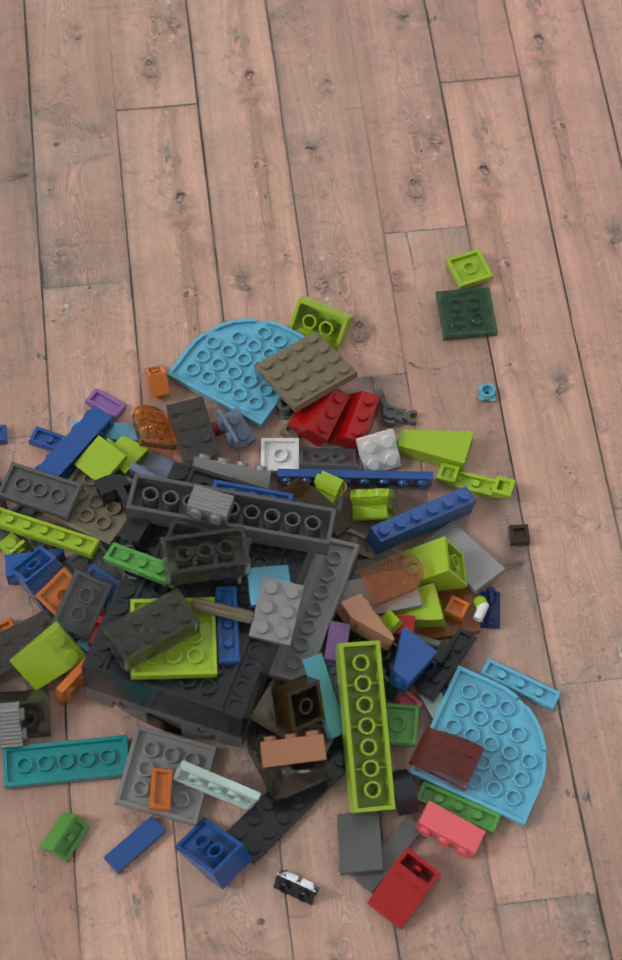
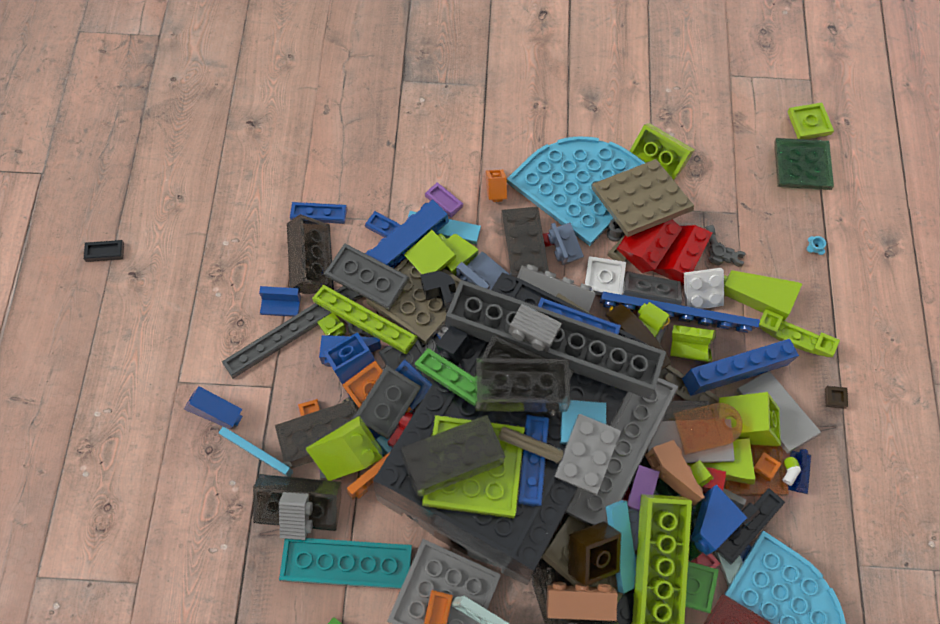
camera: 10 degrees right, 5 degrees up
(153, 429) = (485, 232): clear orange plate -> none
(521, 684) = (824, 559): medium azure tile -> none

